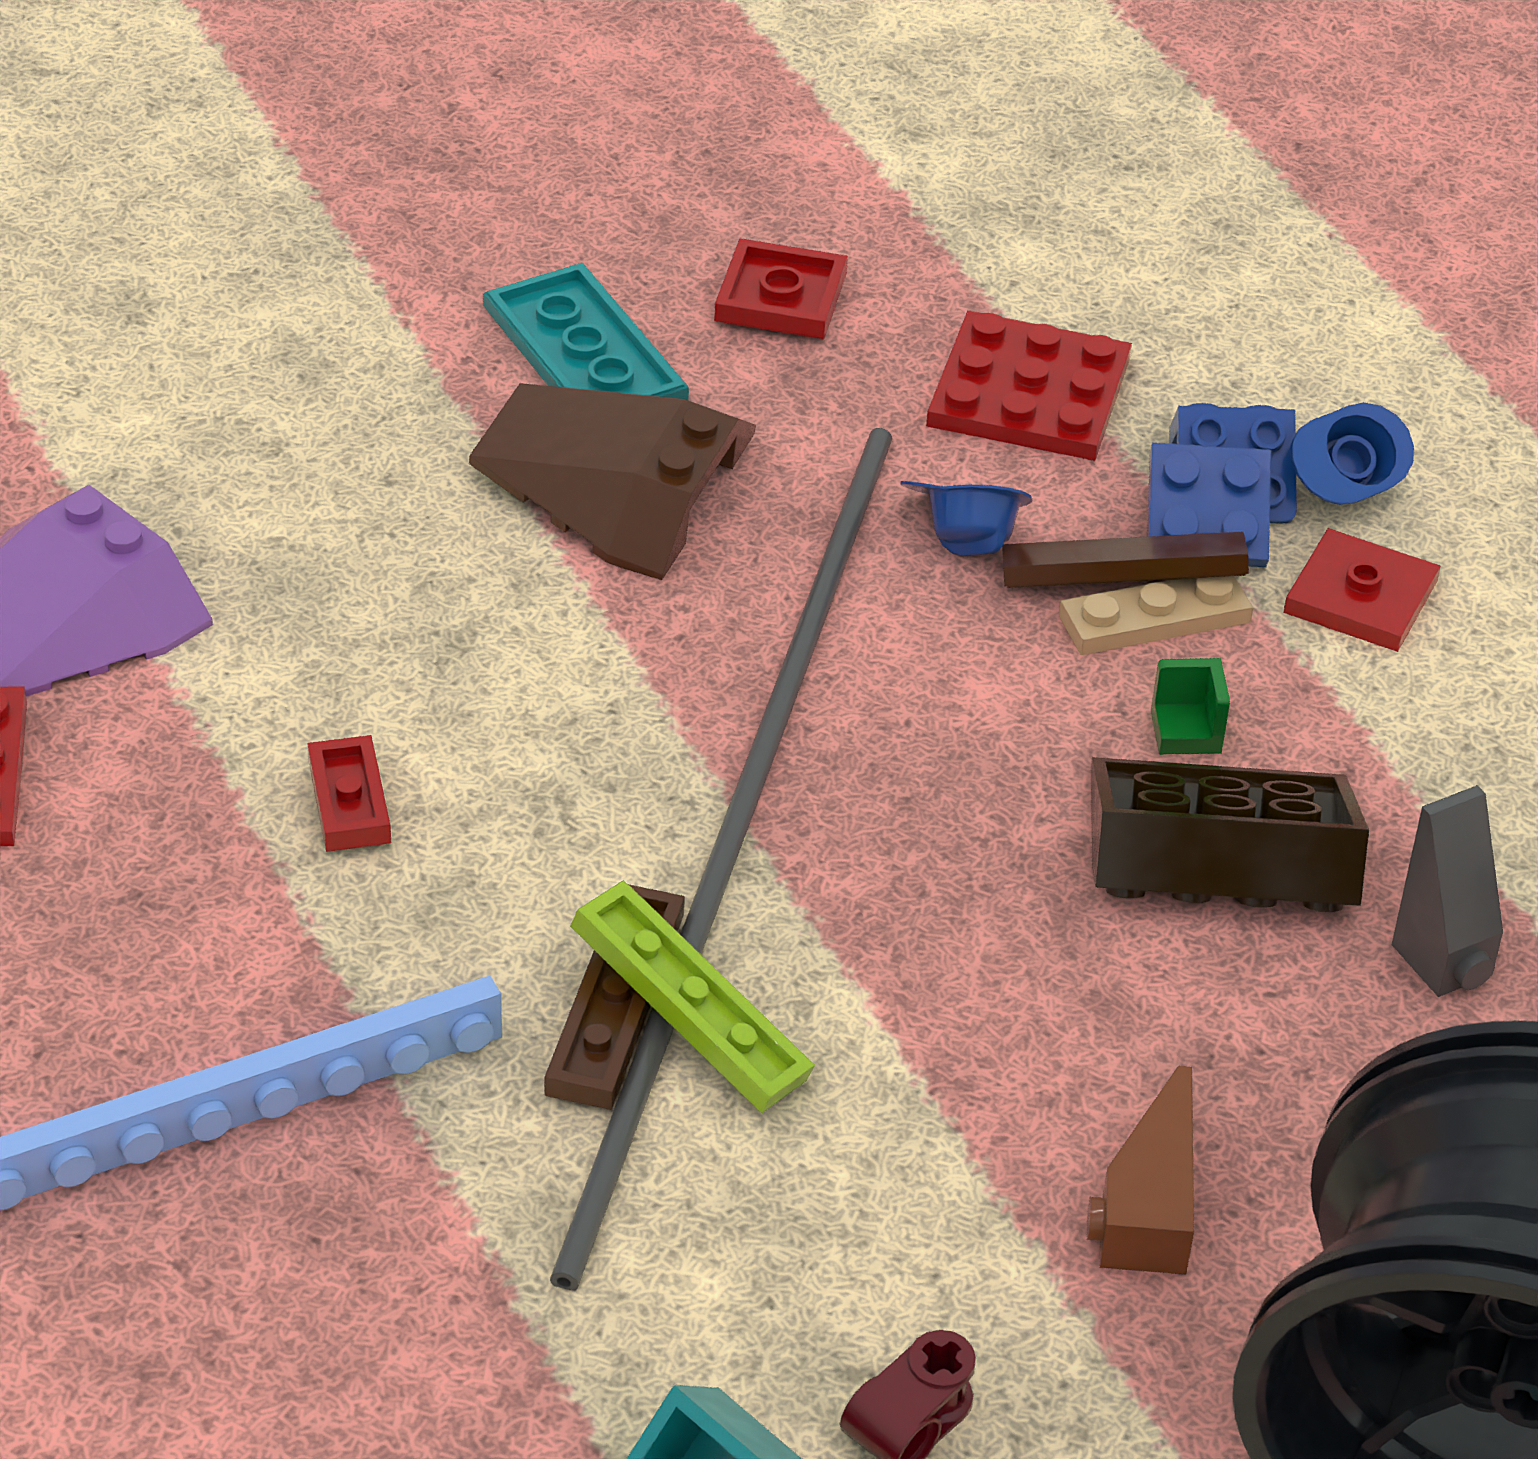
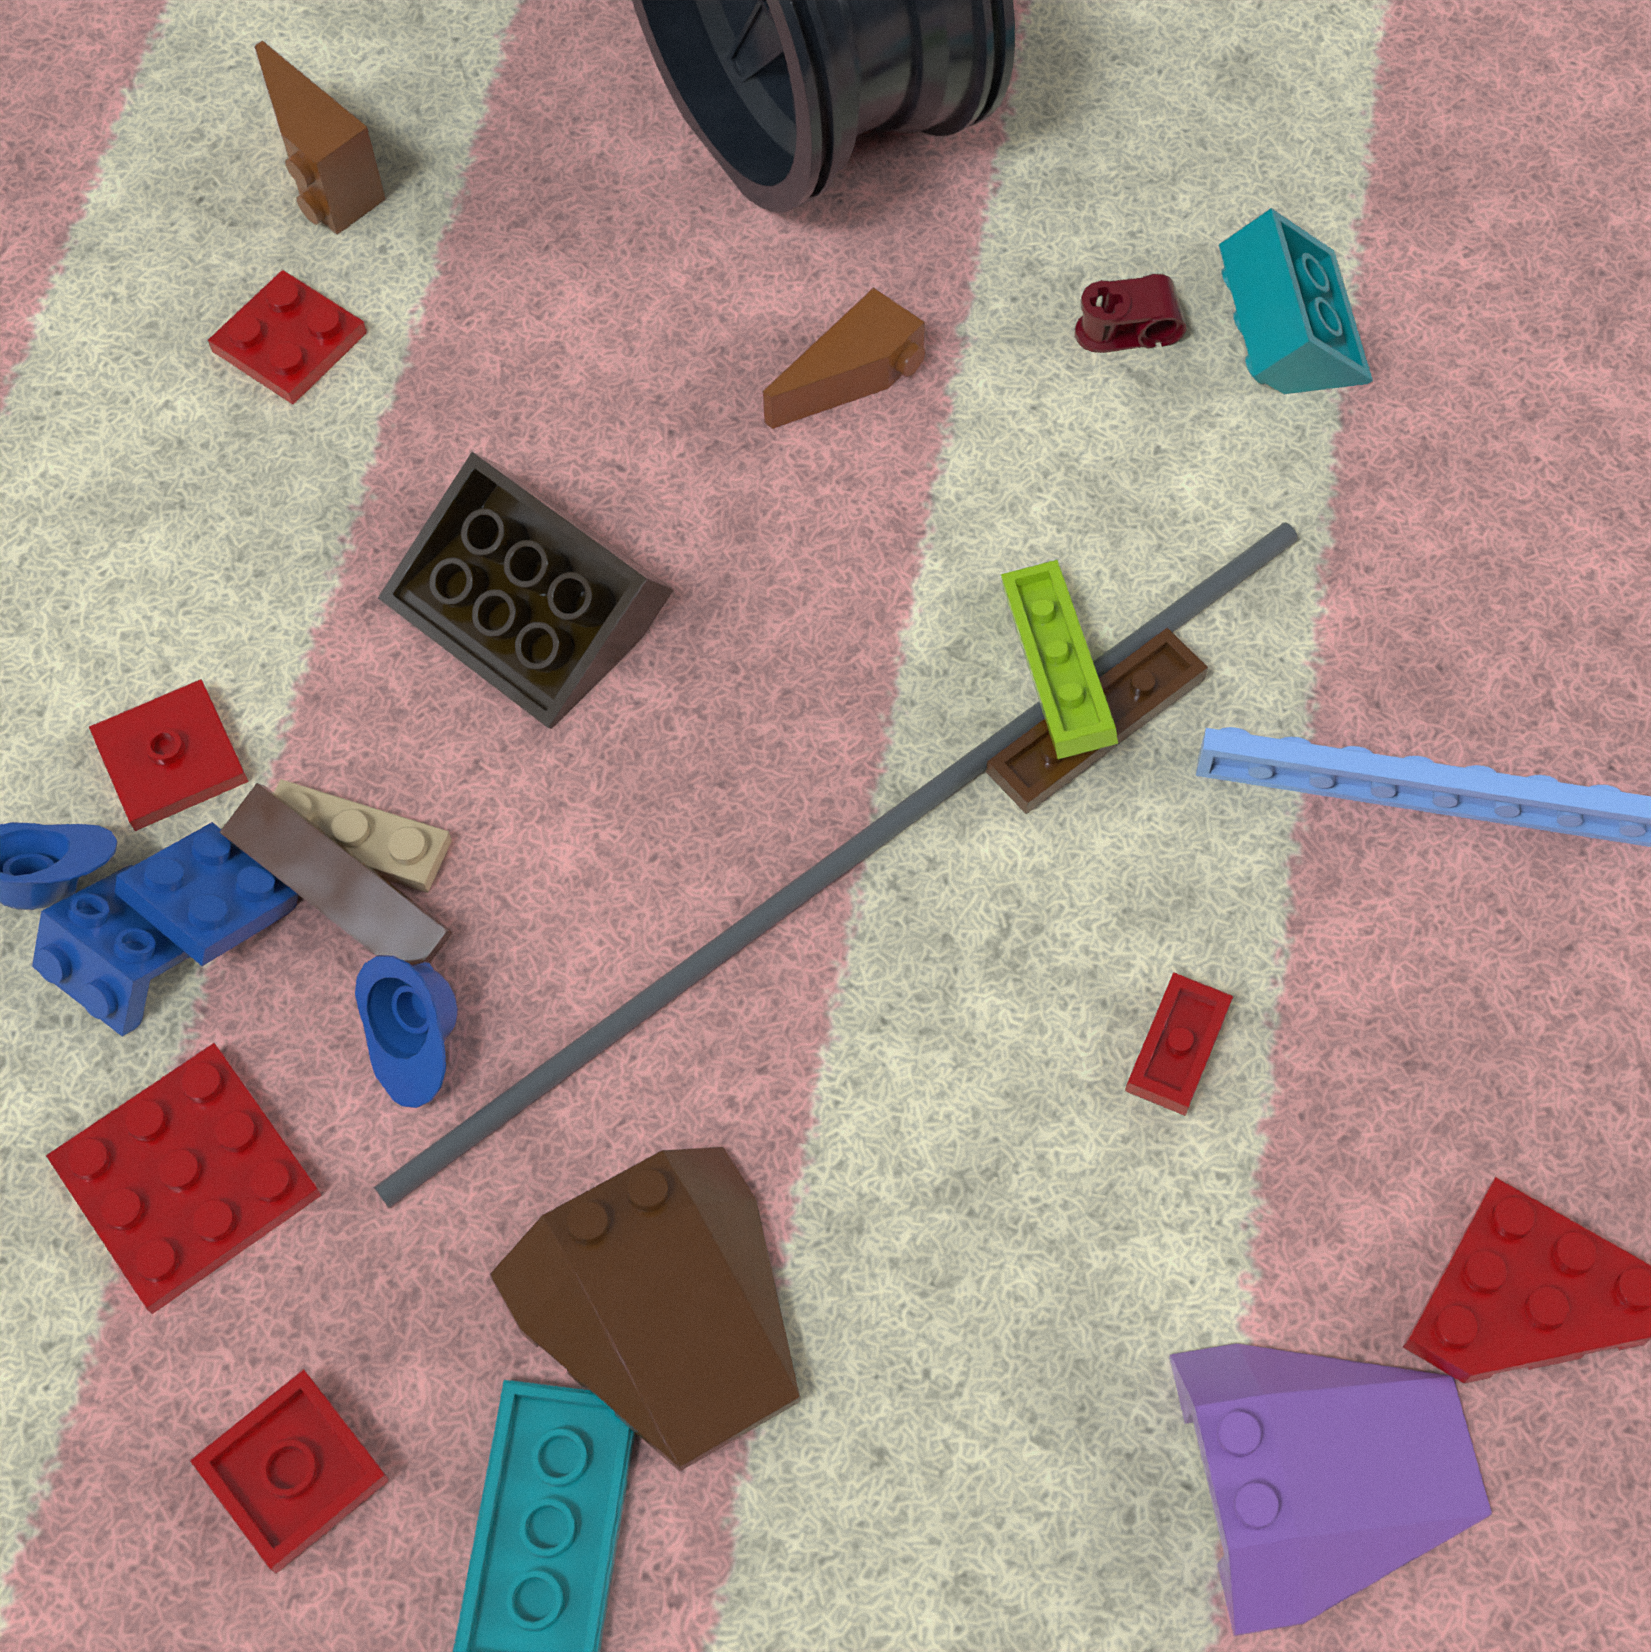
camera: 140 degrees left, 20 degrees up
(1190, 706) = (438, 702): green panel -> none
(1450, 897) = (465, 394): dark grey slope -> none

